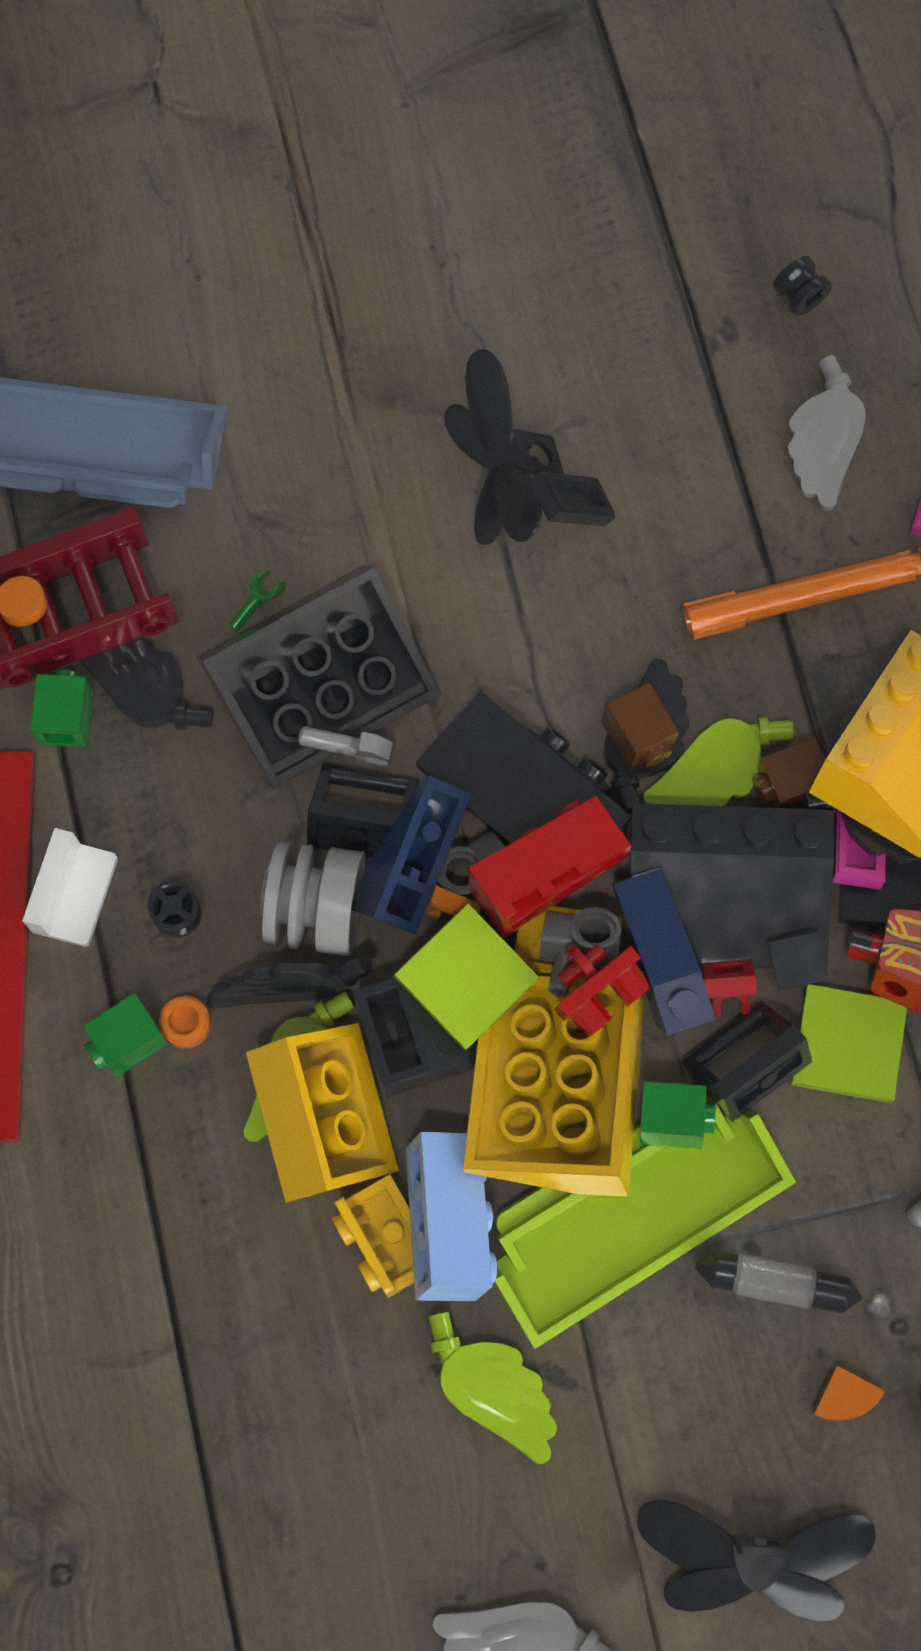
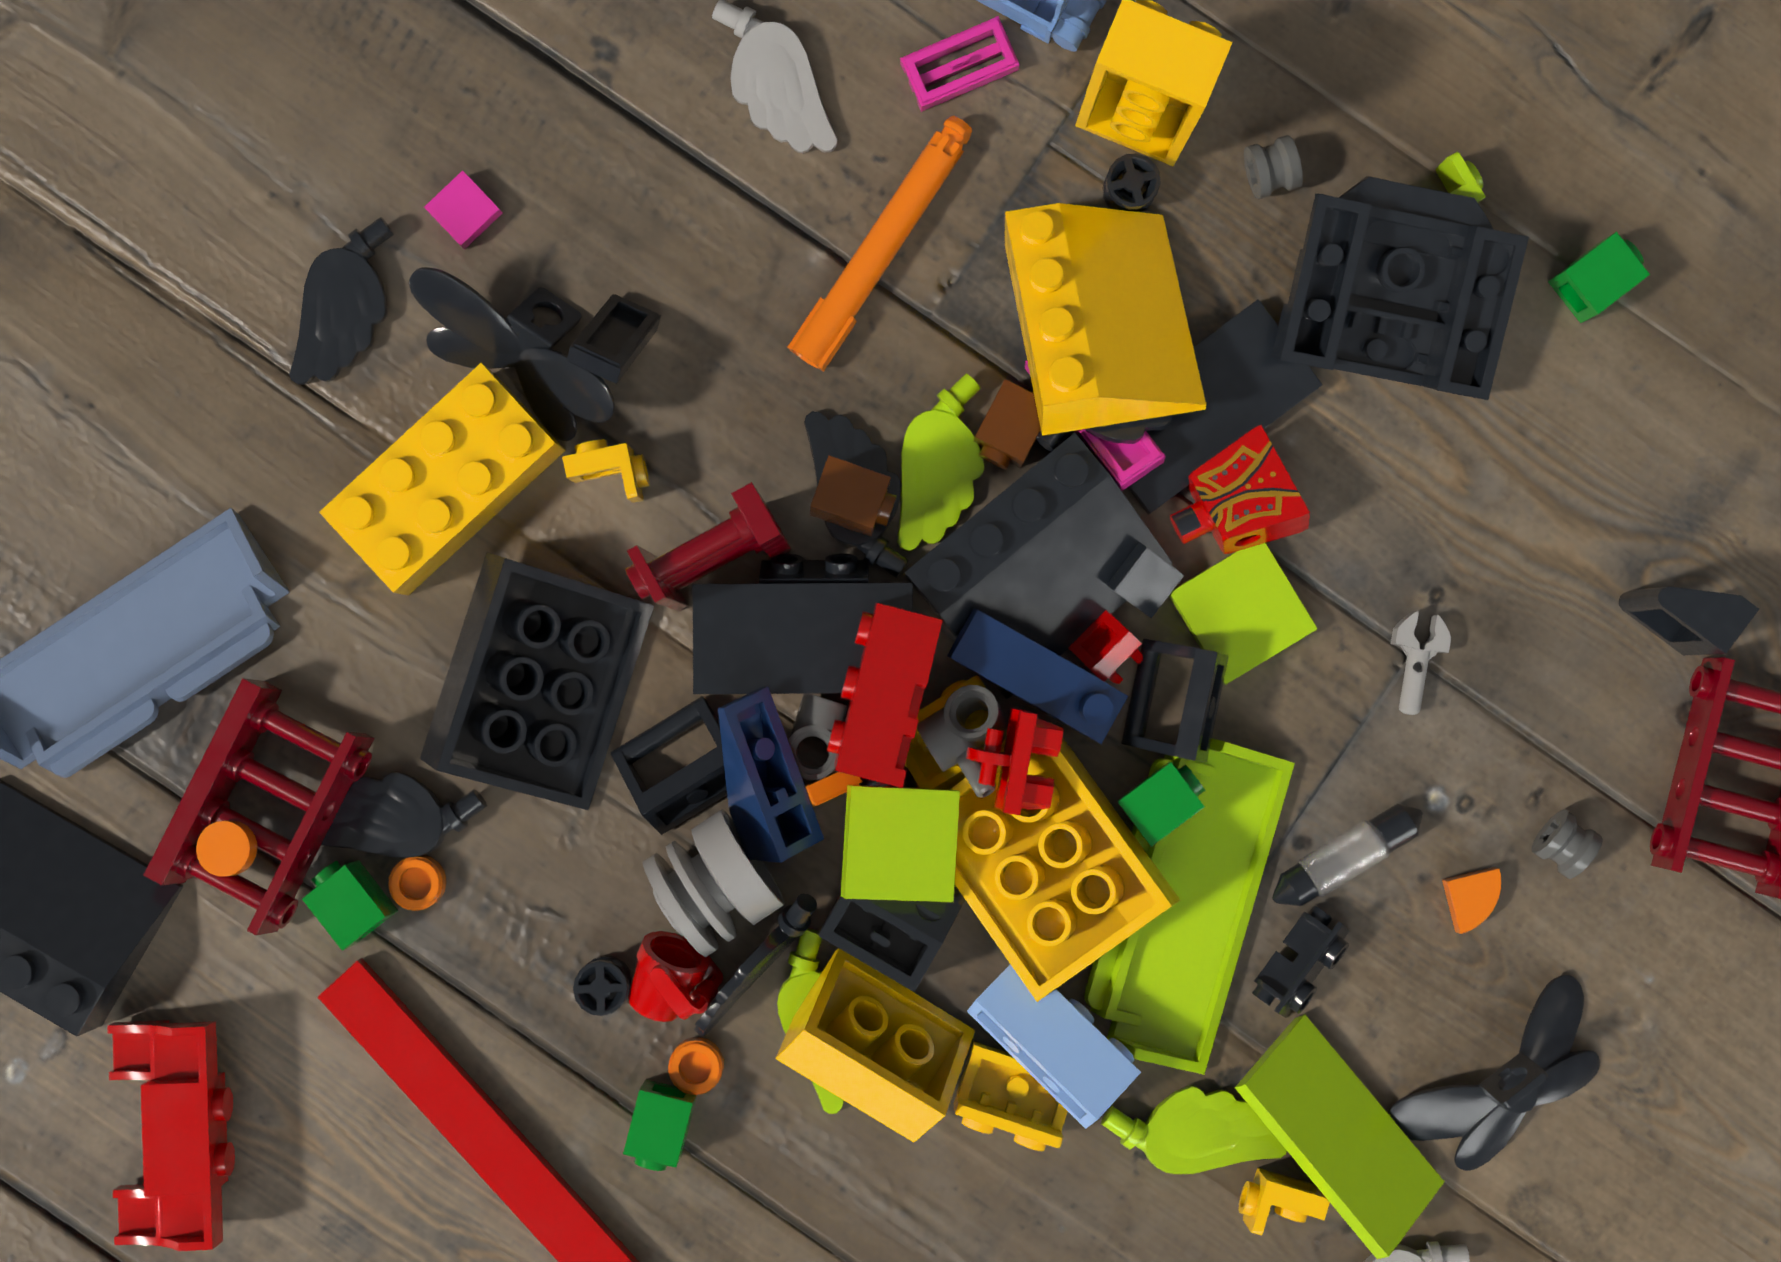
camera: 45 degrees left, 15 degrees up
(69, 890) = (501, 1044): white panel -> none
(117, 738) = (417, 882): none -> orange tile
(224, 938) = (668, 975): none -> red piece
(257, 597) = (421, 655): green hand -> none
(367, 749) = (628, 717): light grey bar -> none
(377, 497) = (442, 481): none -> yellow brick
(411, 344) = (340, 306): none -> black animal
(494, 573) = (597, 460): none -> yellow bracket
(514, 667) = (747, 530): none -> dark red fence
(518, 1496) = (1290, 1196): none -> yellow bracket
(546, 350) = (463, 210): none -> dark pink tile
(596, 1480) = (1340, 1136): none -> lime tile
(701, 1329) = (1316, 948): none -> black hinge

